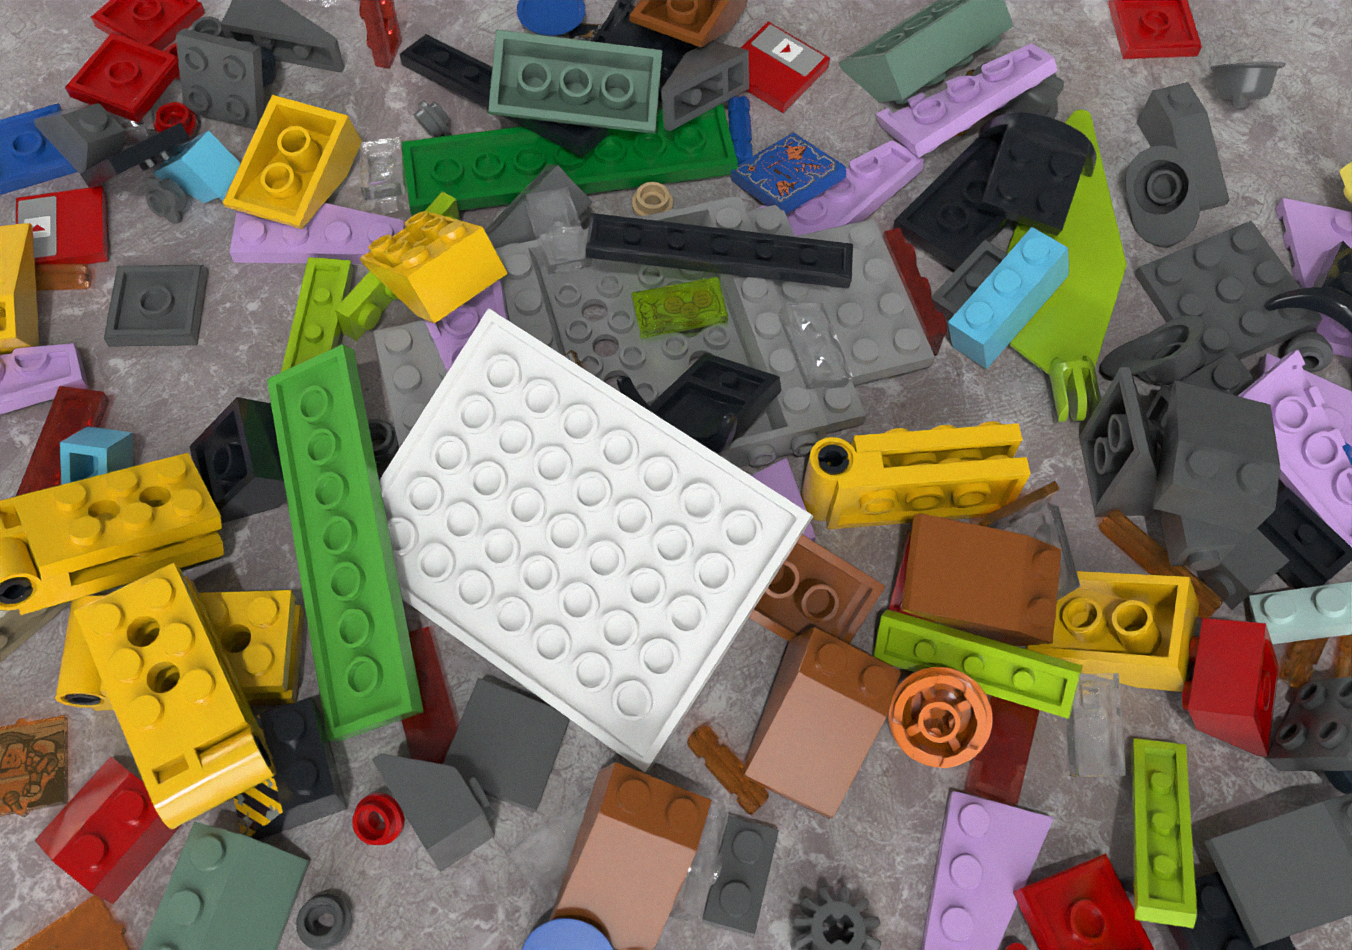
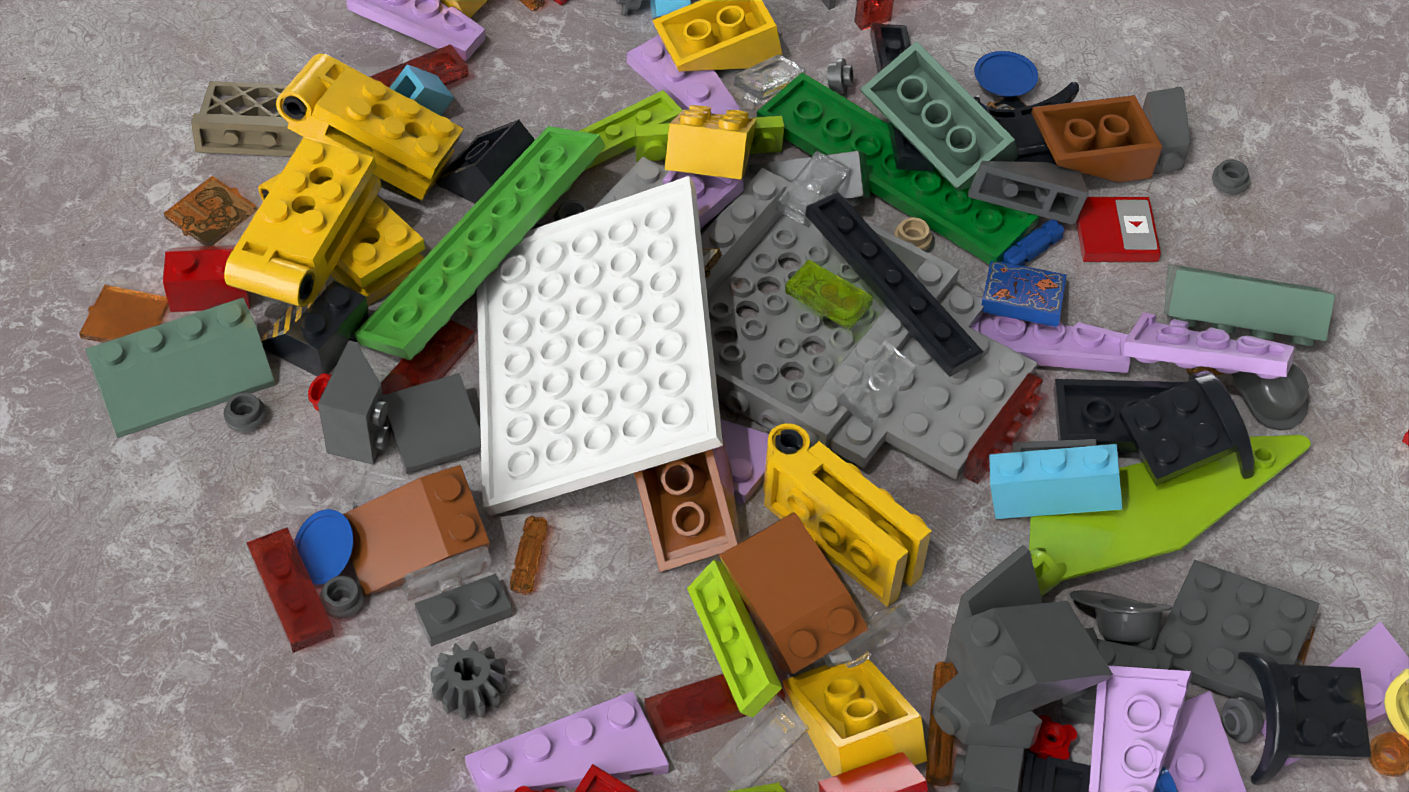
camera: 50 degrees right, 10 degrees down
(156, 305) = (555, 49): dark grey tile -> none
(711, 399) = (763, 354): black piece -> none
(820, 721) = (604, 575): slope -> none
(940, 717) = (671, 638): orange cone -> none
(1009, 514) = (874, 590): clear orange piece -> none
(1162, 195) = (1279, 532): dark grey piece -> none
(1180, 121) = (1348, 525): dark grey slope -> none

